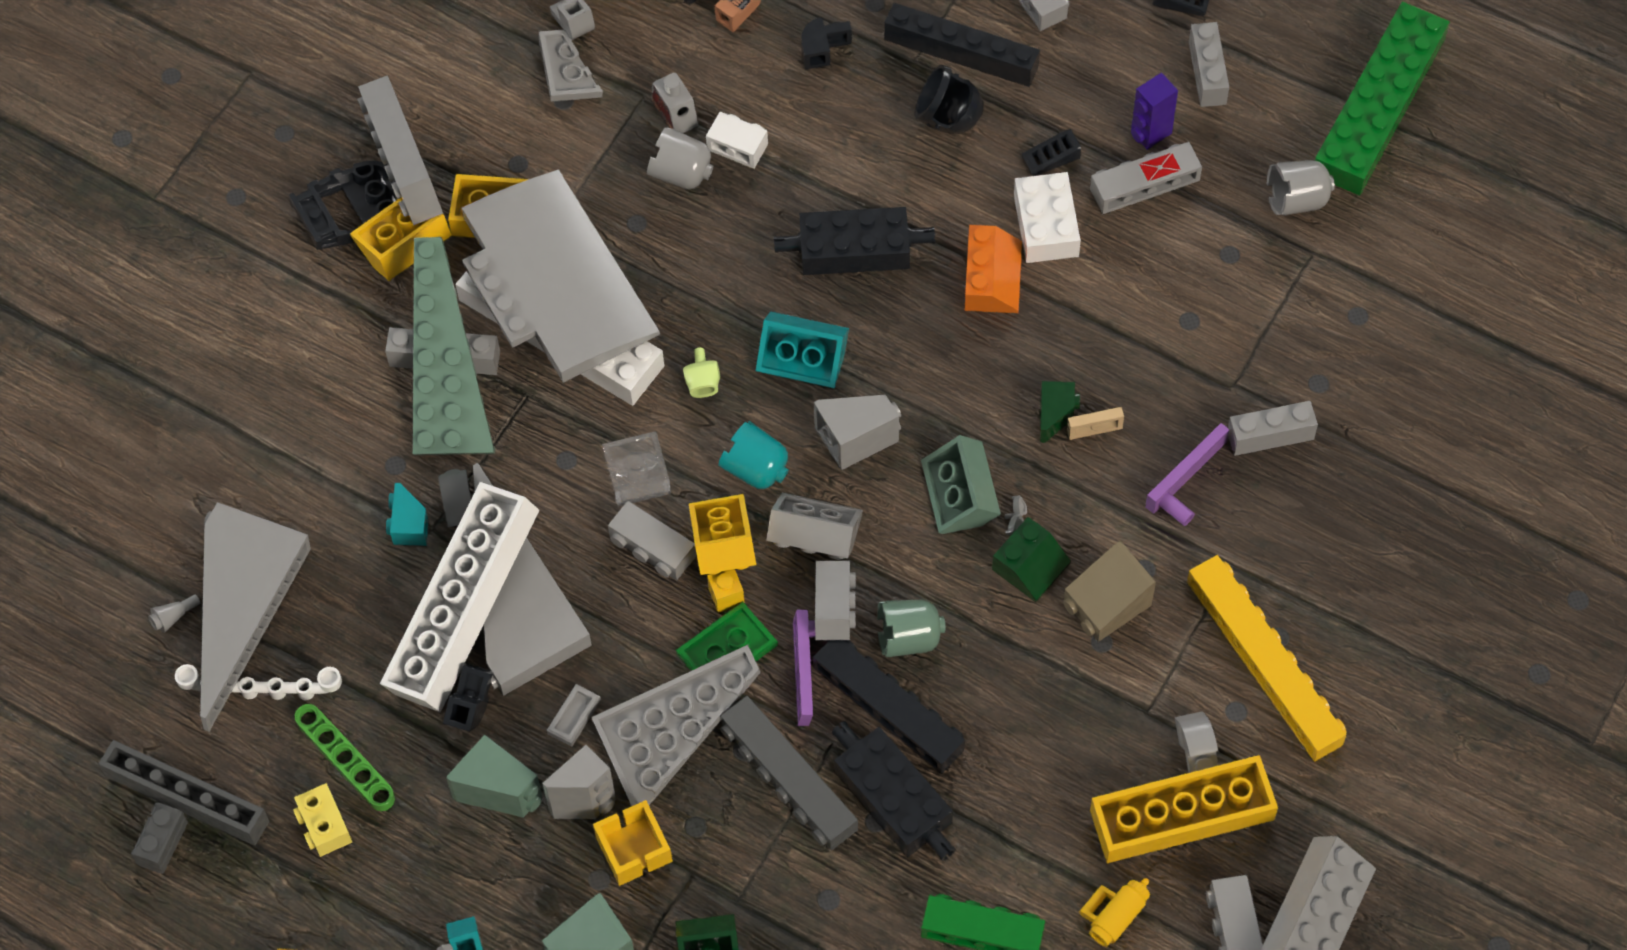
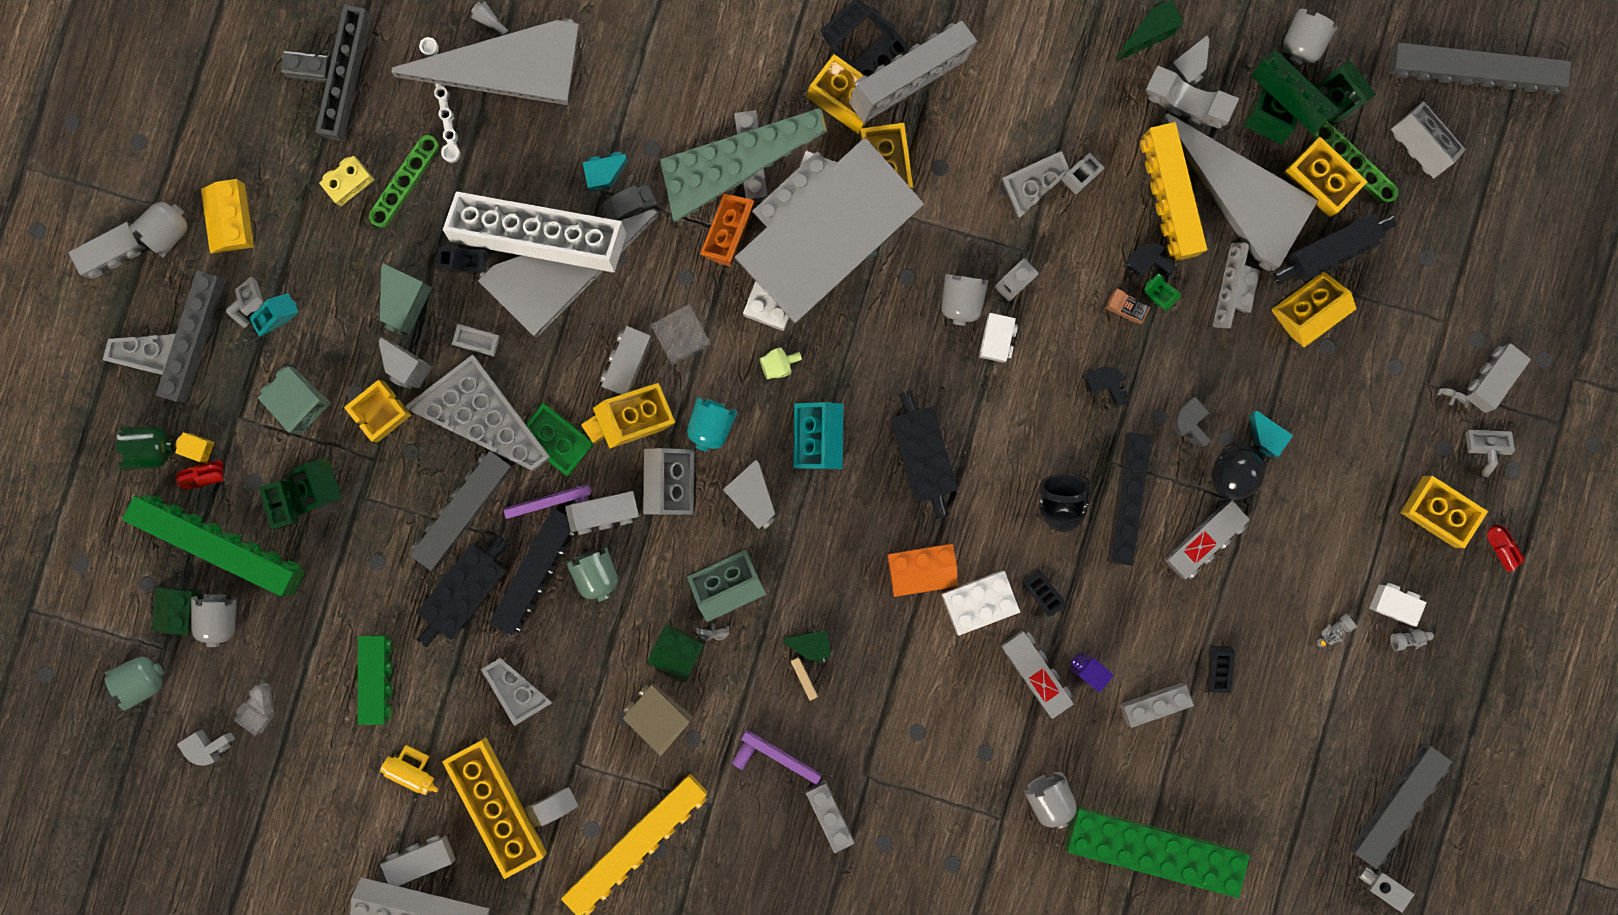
camera: 70 degrees right, 25 degrees up
(525, 385) = (728, 229): none -> orange slope
(1042, 760) = (514, 692): none -> light grey wing

